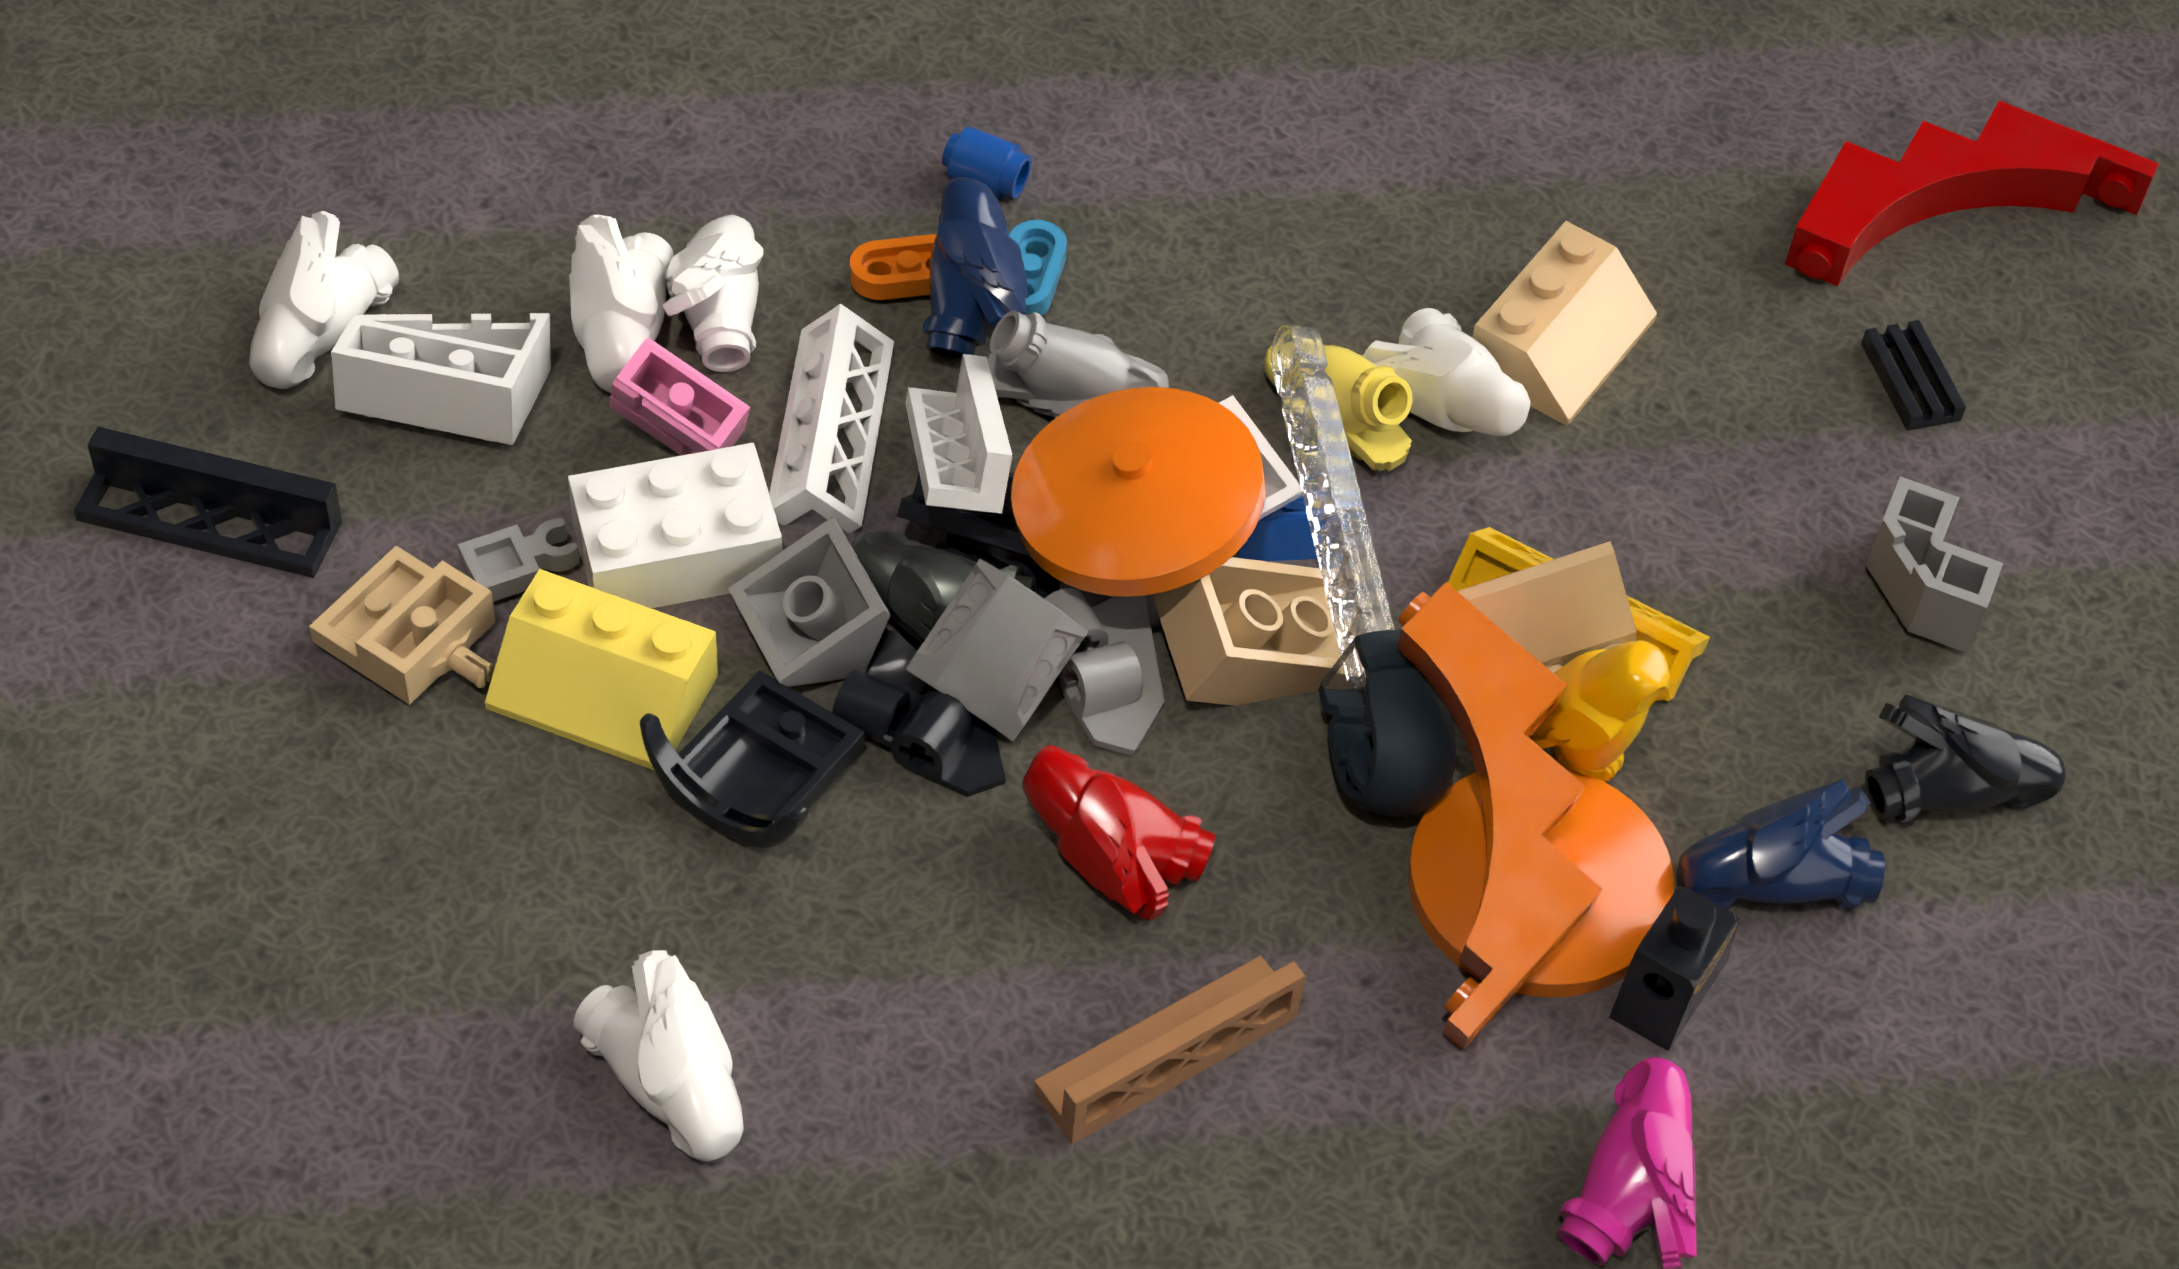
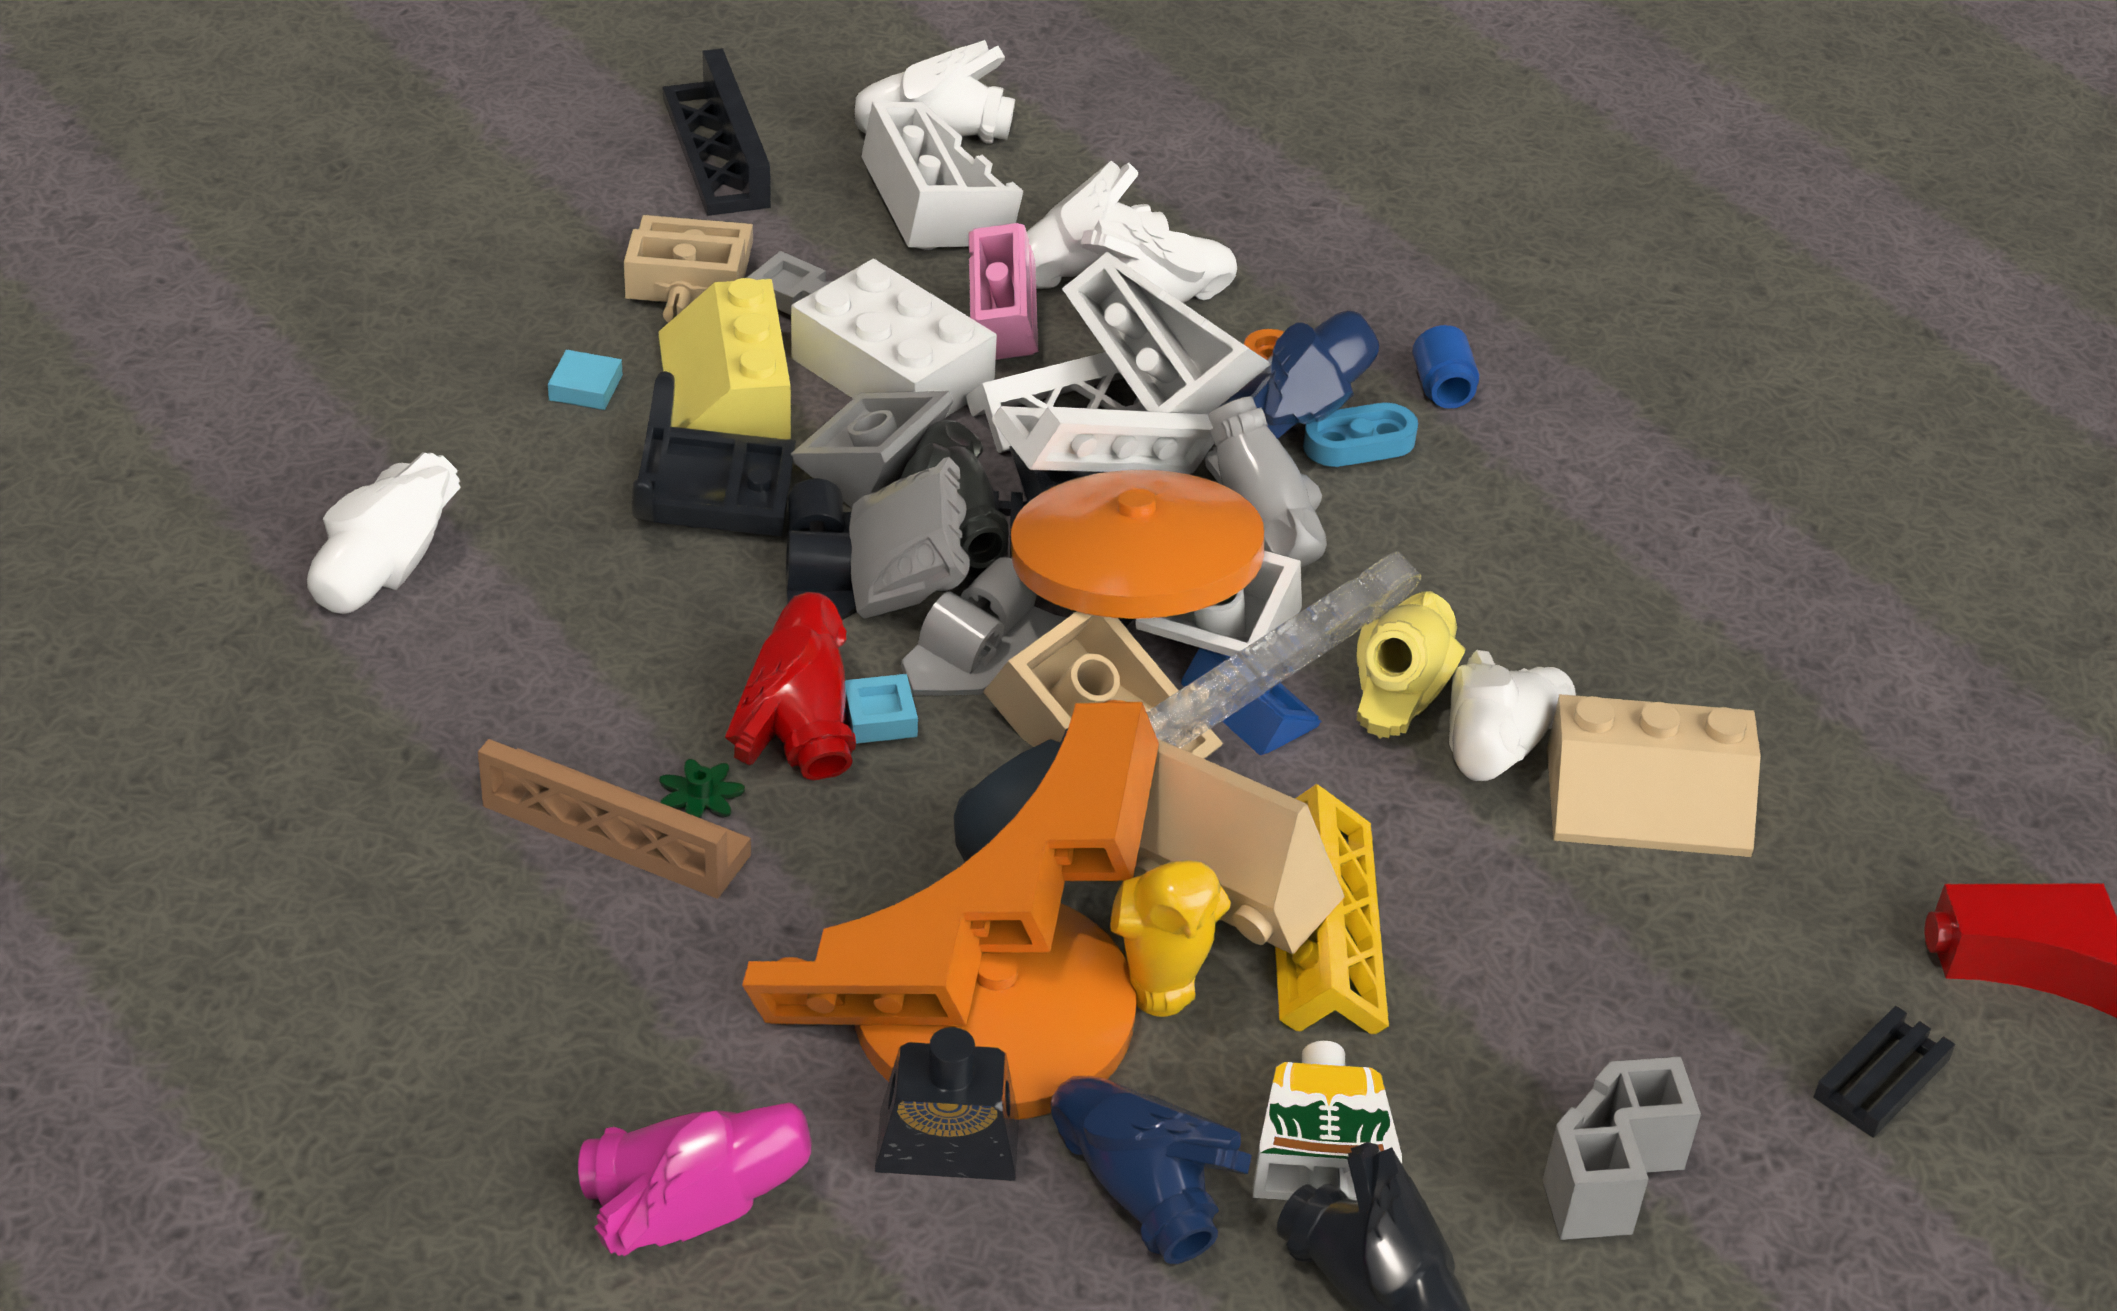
camera: 60 degrees right, 10 degrees down
(518, 795) = (585, 379): none -> medium azure tile
(891, 331) = (1158, 343): none -> white wedge
(1161, 967) = (701, 789): none -> dark green plant
(1163, 775) = (881, 708): none -> medium azure plate
(1807, 728) = (1315, 1120): none -> torso

